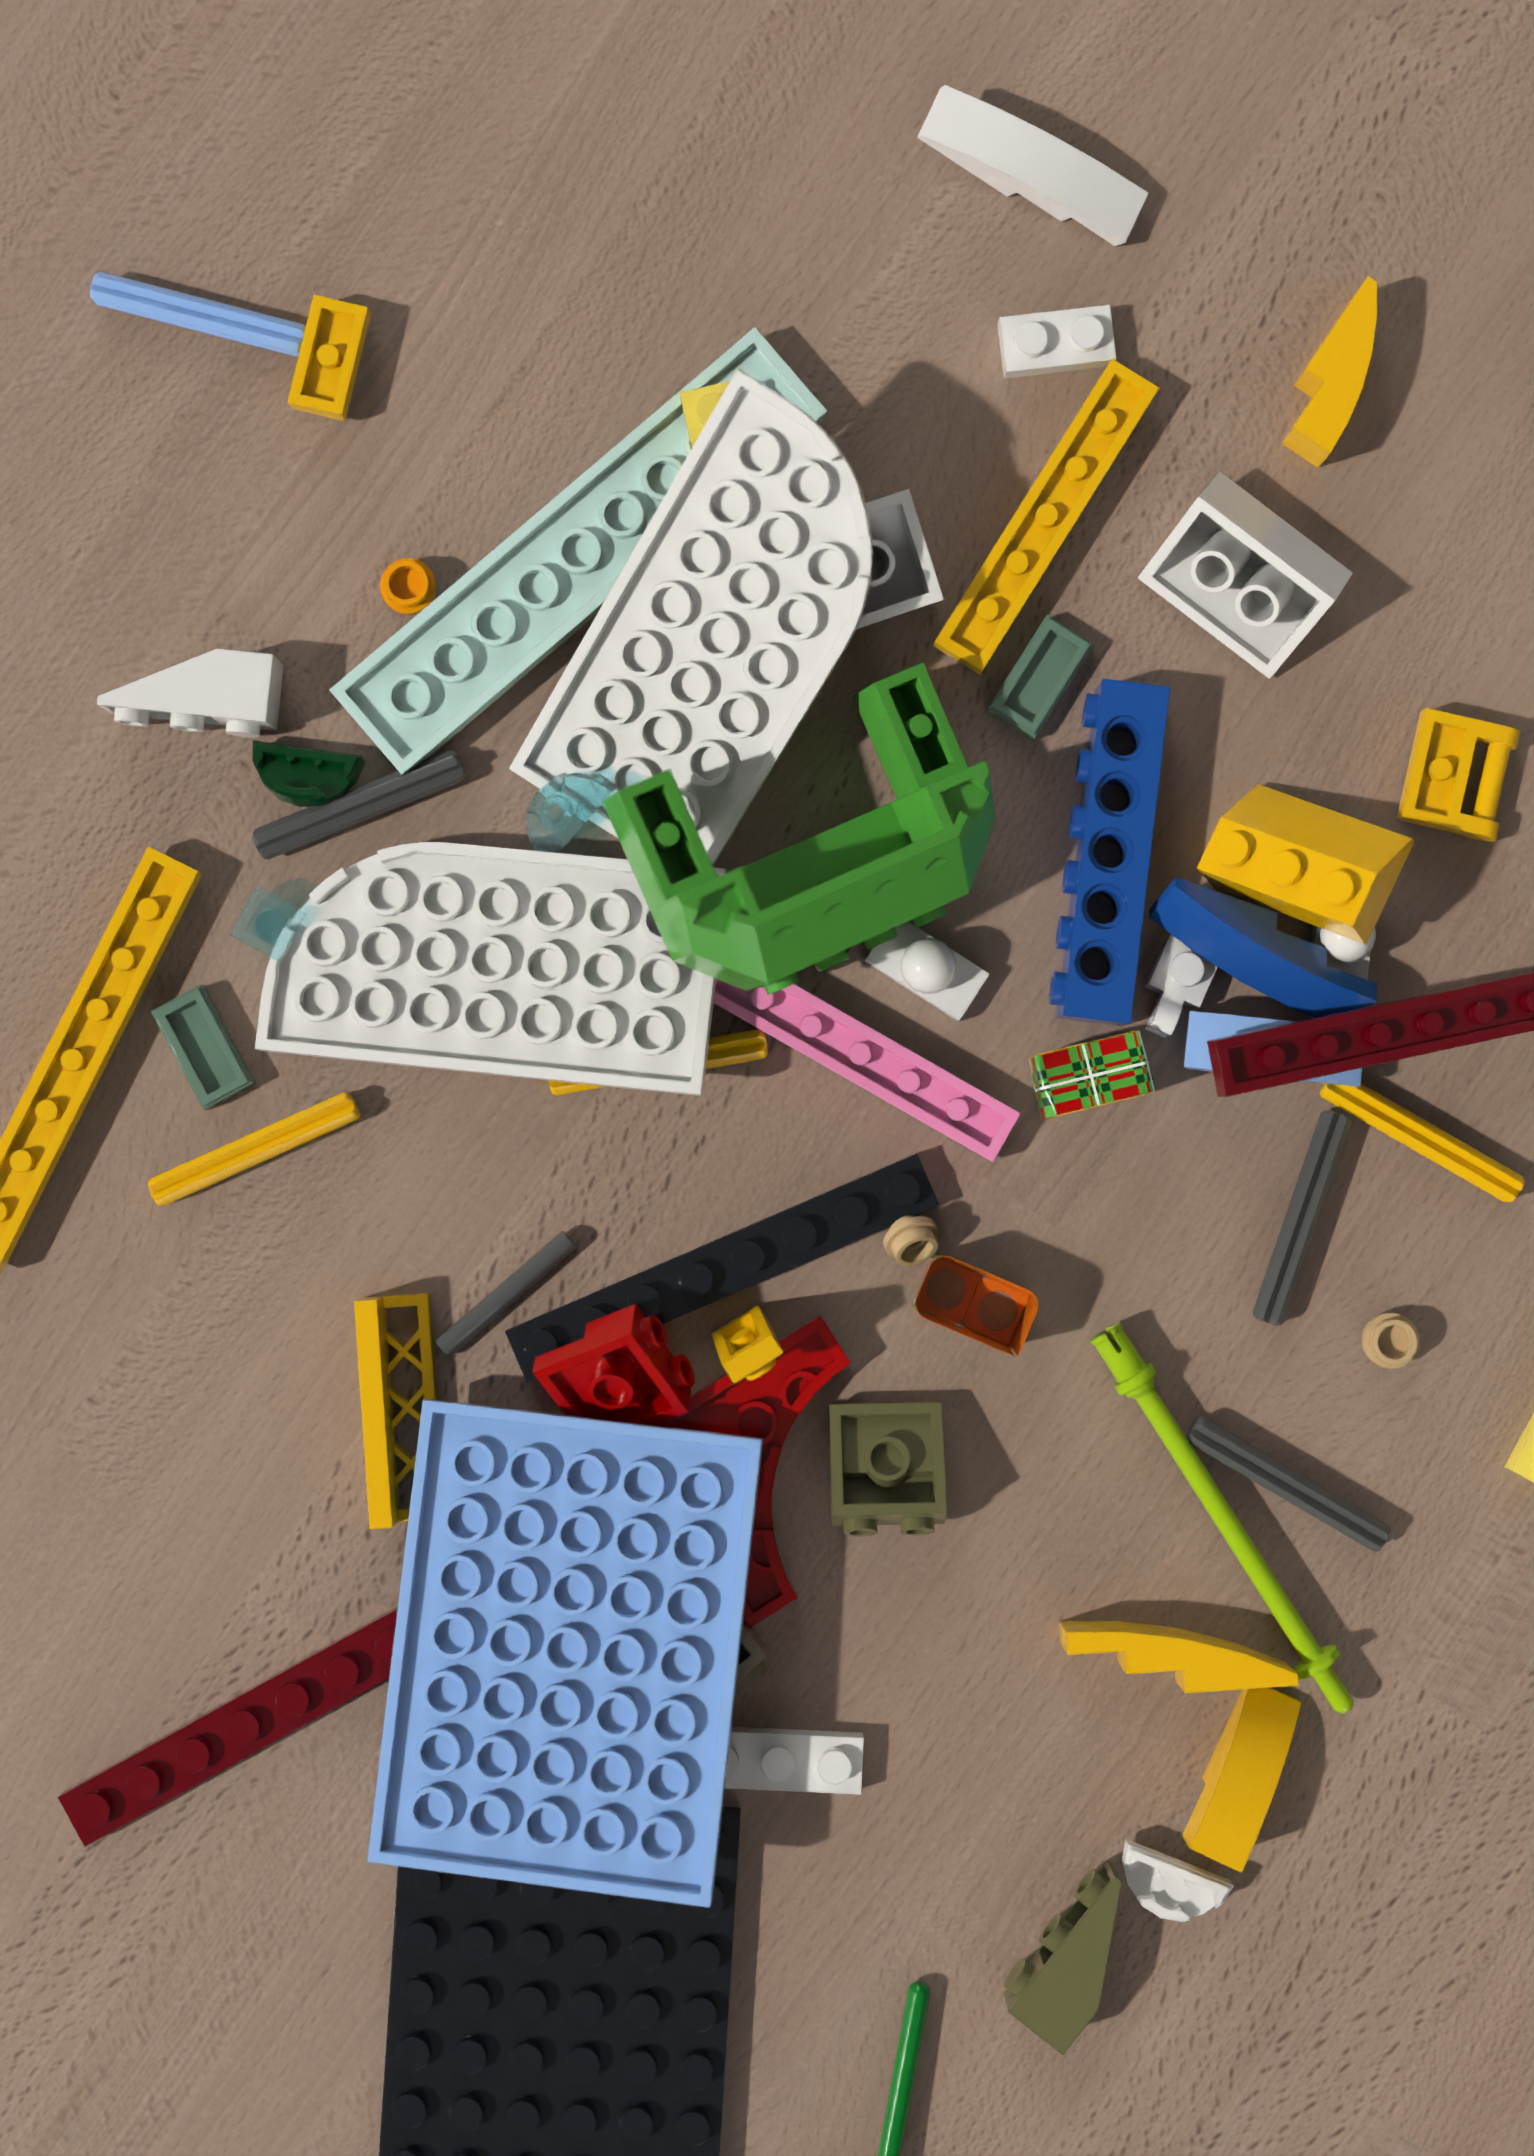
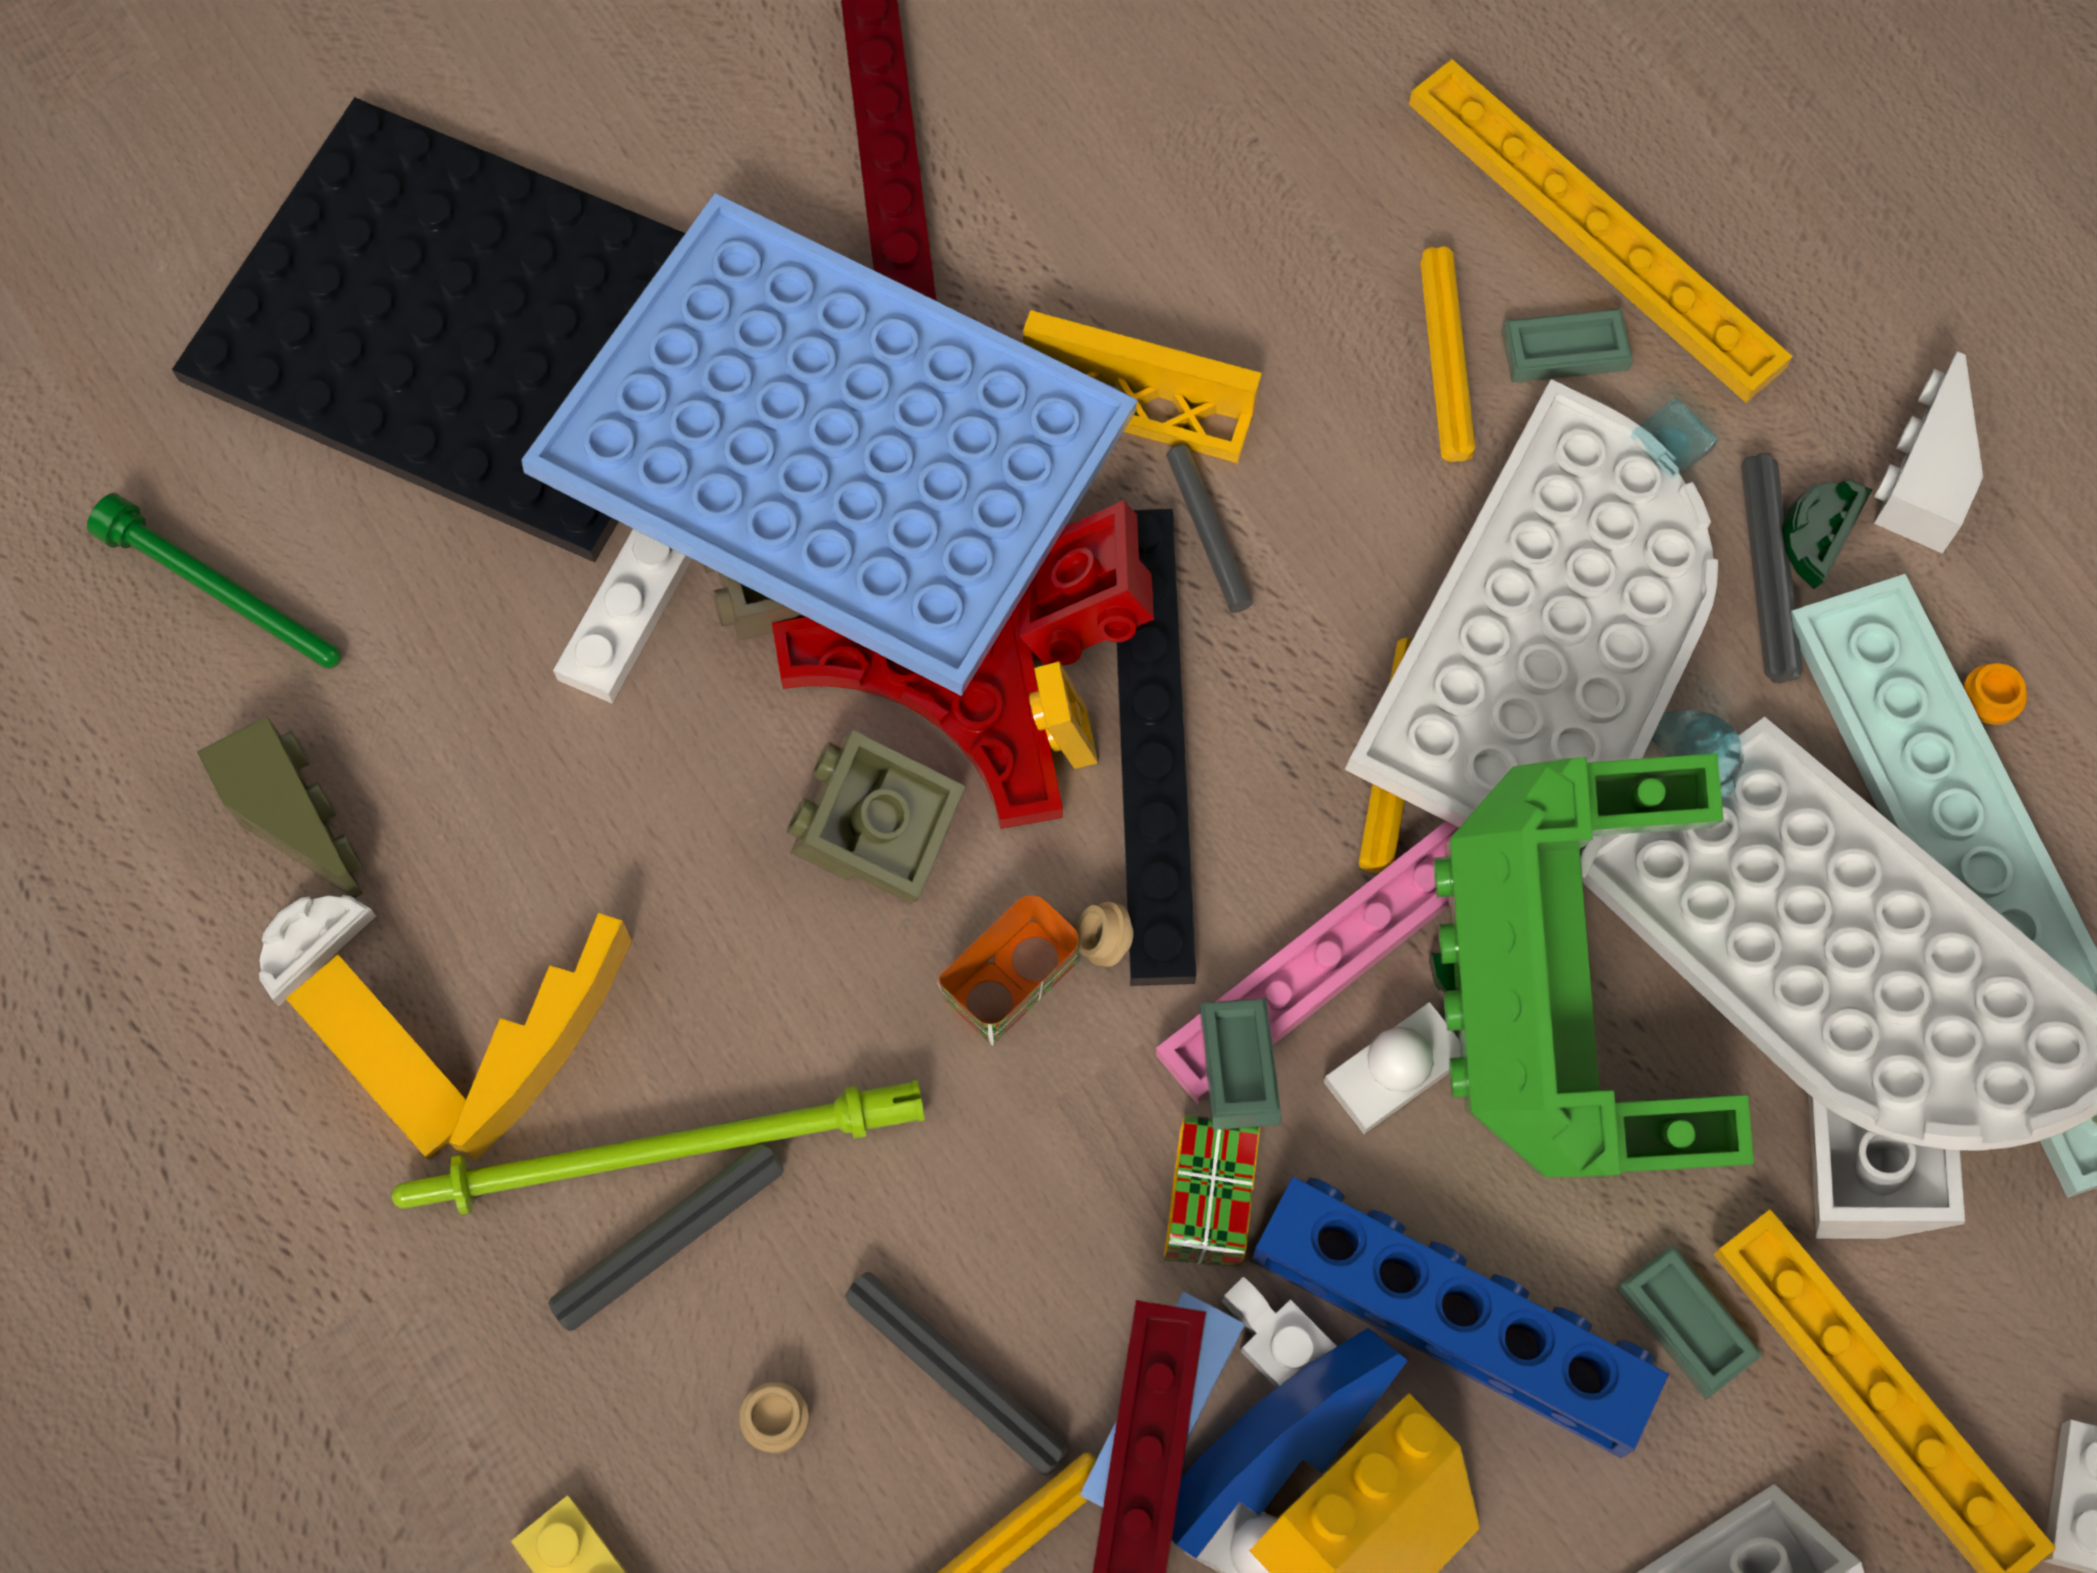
camera: 115 degrees right, 20 degrees down
(989, 1089) = (1240, 1064): none -> sand green tile

